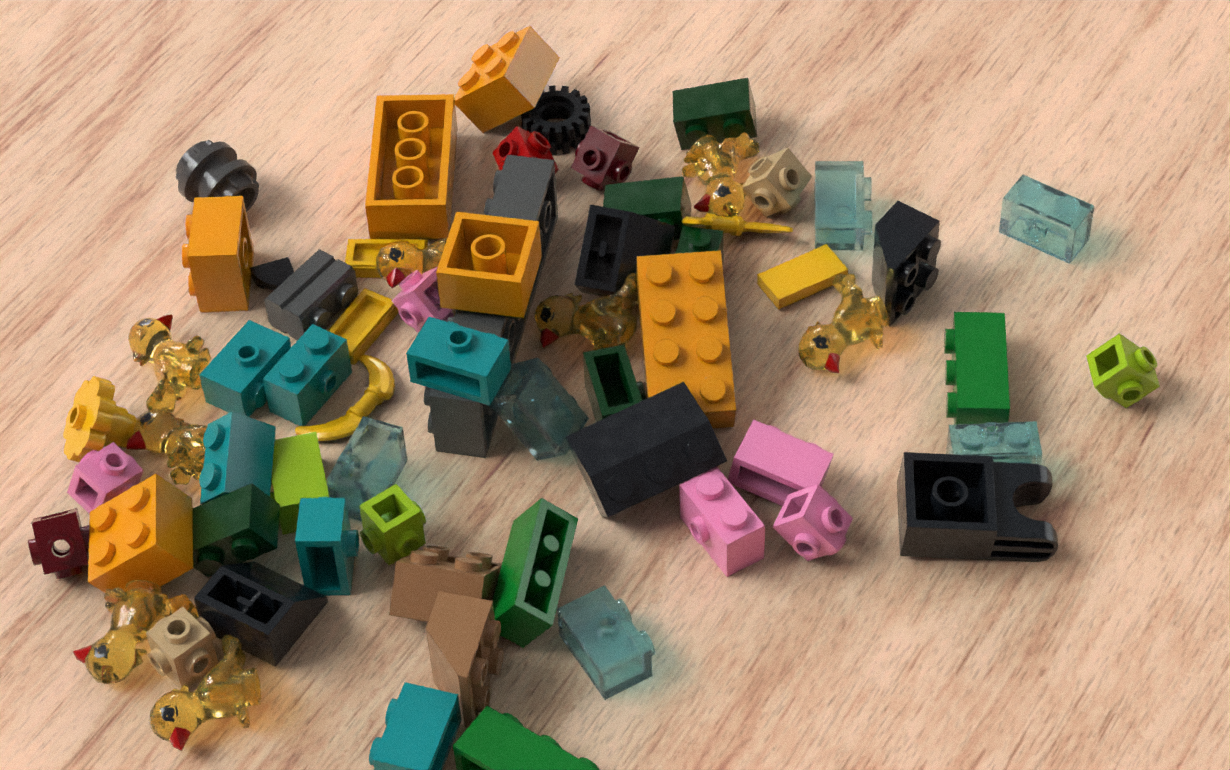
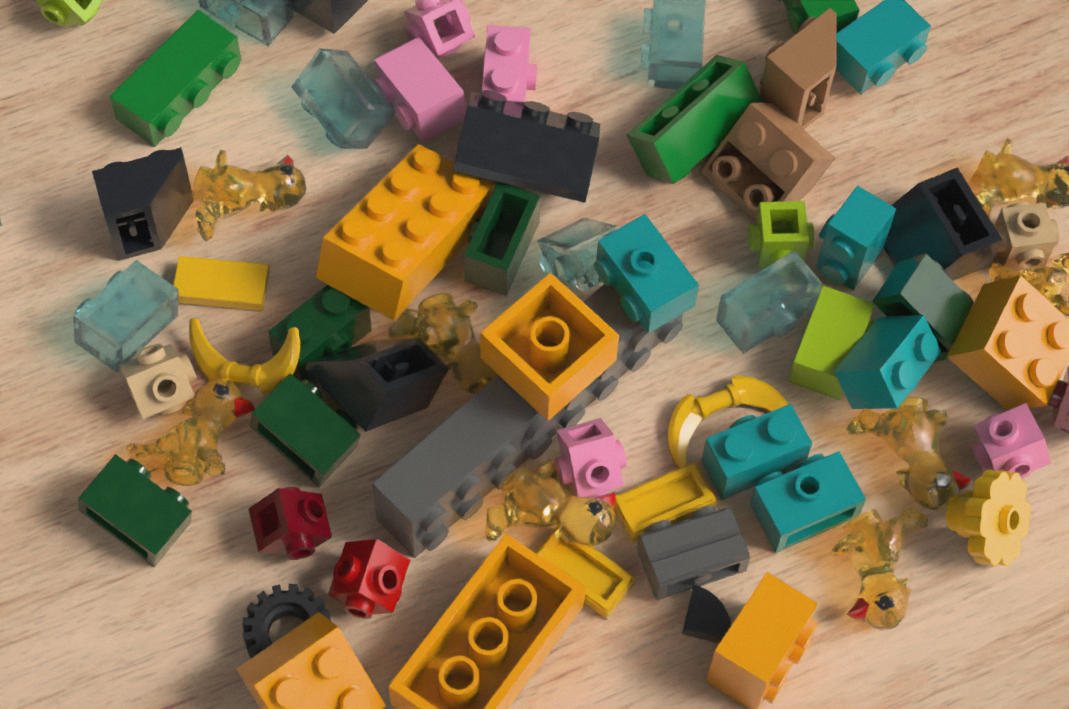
camera: 150 degrees left, 15 degrees up
(832, 422) = (343, 99): none -> clear light blue brick

